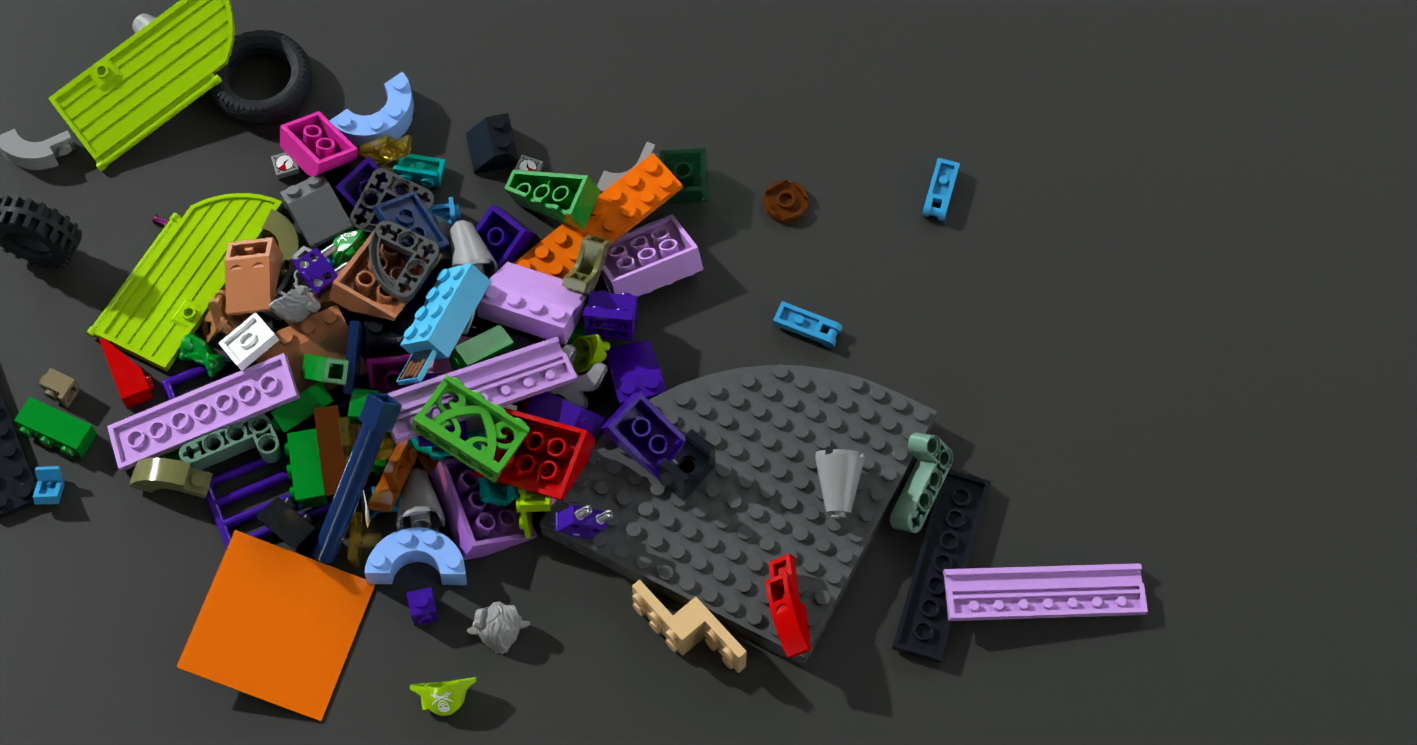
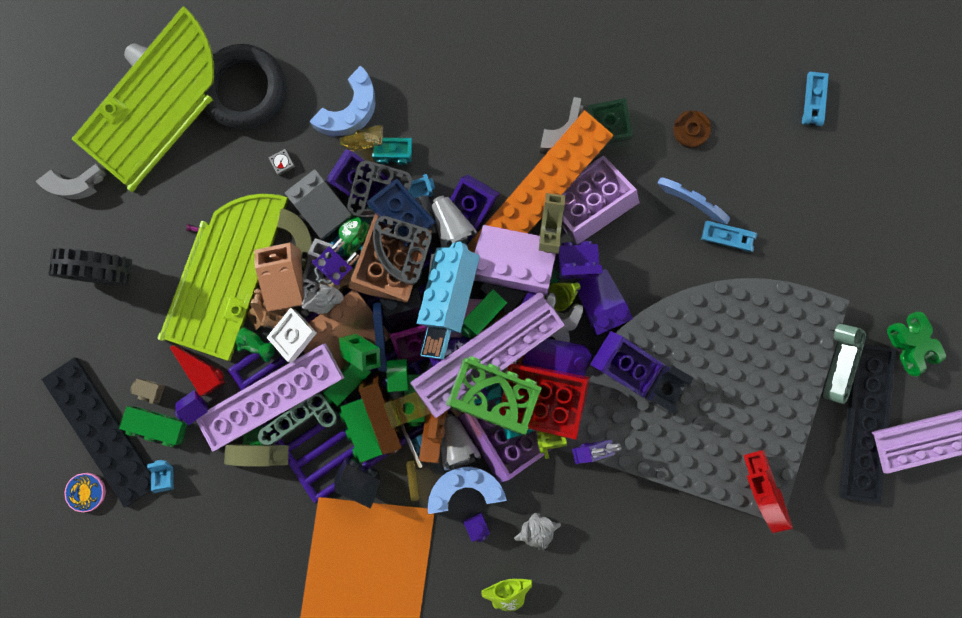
camera: 10 degrees left, 20 degrees up
(105, 412) = (191, 407): none -> dark purple brick
(316, 144) = (304, 145): dark pink brick -> none
(377, 418) = (417, 405): dark blue brick -> none
(492, 144) = (446, 117): black slope -> none
(529, 164) = (479, 134): tile -> none
(556, 195) = (514, 161): green wedge -> none
(688, 627) = (687, 513): tan bracket -> none
(770, 272) = (695, 199): none -> medium blue tile
(839, 479) = (789, 379): light grey cone -> none
(1016, 477) = (916, 343): none -> green piece

